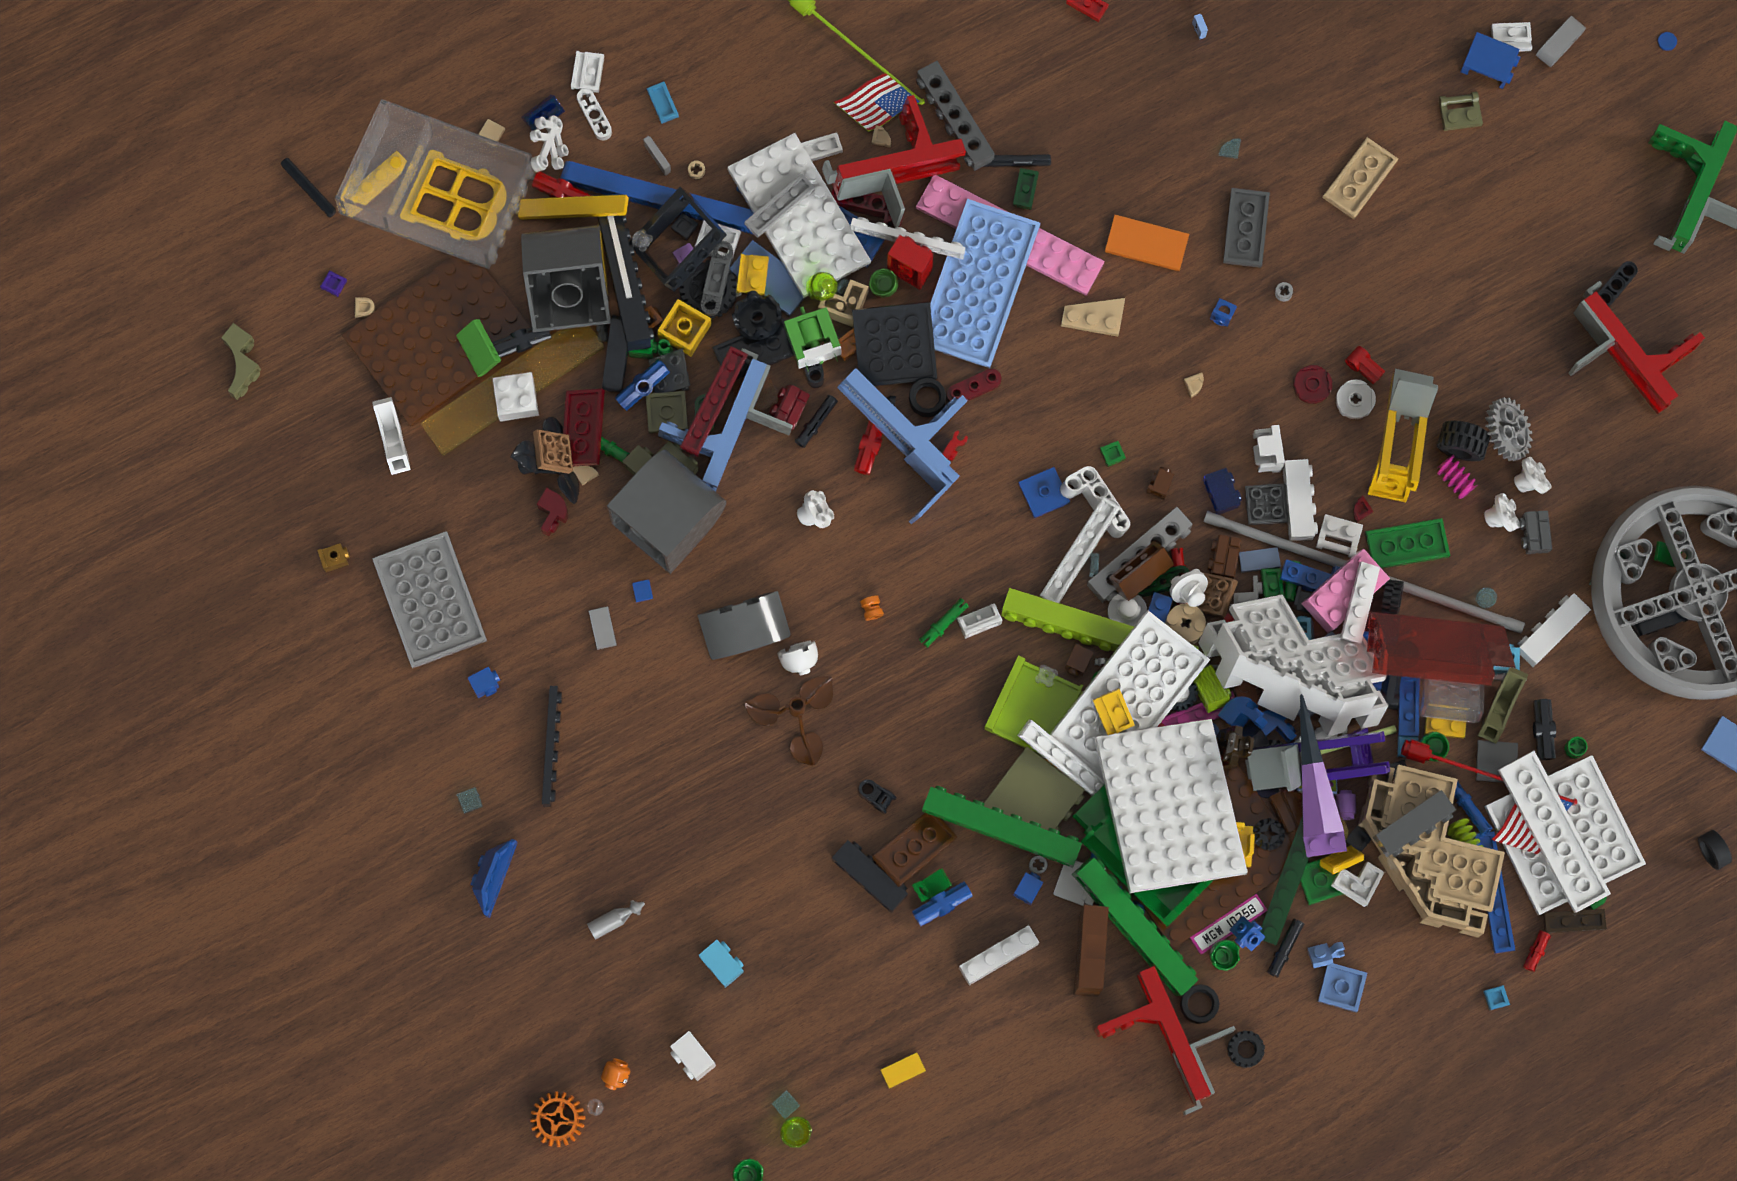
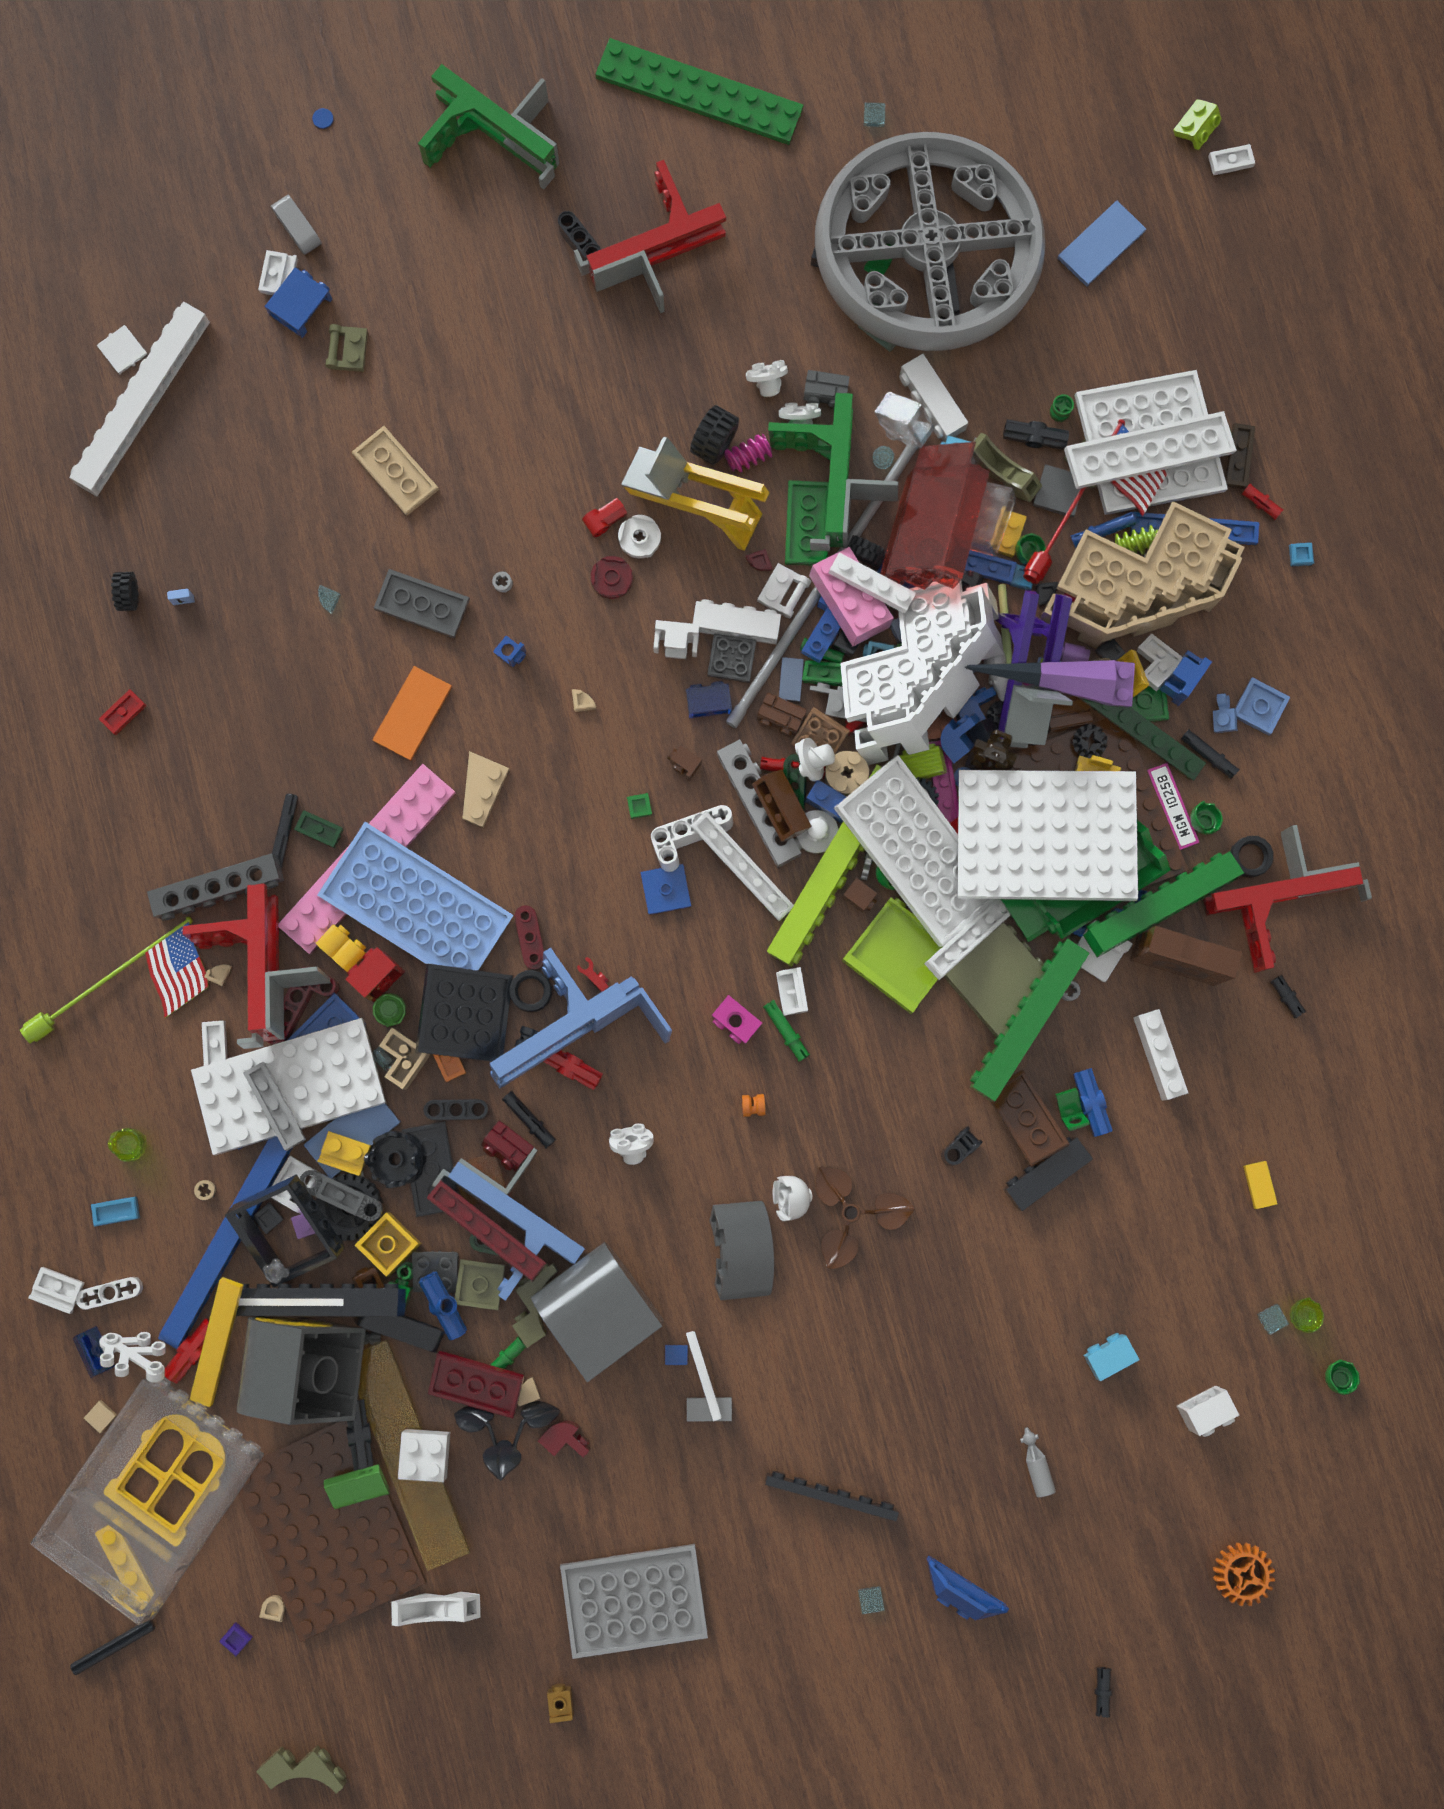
camera: 80 degrees left, 5 degrees up
(432, 1015) = (1103, 1692): none -> black pin
(484, 682) = (743, 1557): blue brick -> none
(553, 451) = (499, 1426): medium nougat tile -> none
(599, 1109) = (1237, 1523): clear hinge -> none
(615, 1074) = (1207, 1499): orange head -> none
(630, 615) = (703, 1374): none -> white tile
(657, 155) = (177, 1231): light grey tile -> none
(720, 98) = (128, 1144): none -> clear neon green hair
(810, 331) = (428, 1103): bright green piece -> none
(821, 286) = (380, 1079): clear neon green hair -> none
(881, 230) = (361, 943): white plate -> none
(931, 224) = (341, 948): none -> yellow brick
(939, 588) = (730, 1008): none -> dark pink brick
(1028, 888) = (1095, 1006): blue brick -> none
(1052, 673) = (876, 933): clear plate -> none
(1079, 1062) = (1288, 996): none -> black pin
(1094, 564) = (759, 855): clear light blue tile -> none
(1113, 712) = (933, 871): yellow plate -> none
(1237, 1058) = (1318, 813): black tyre -> none
(1247, 933) = (1190, 789): blue brick -> none
(1349, 908) = (1185, 677): none -> blue panel
(1415, 823) = (1128, 584): dark grey brick -> none
(1442, 560) = (835, 446): none -> green piece
(1509, 429) = (712, 385): light grey gear -> none
(1521, 604) = (904, 420): none -> clear brick
(1714, 849) = (1198, 297): black tyre -> none

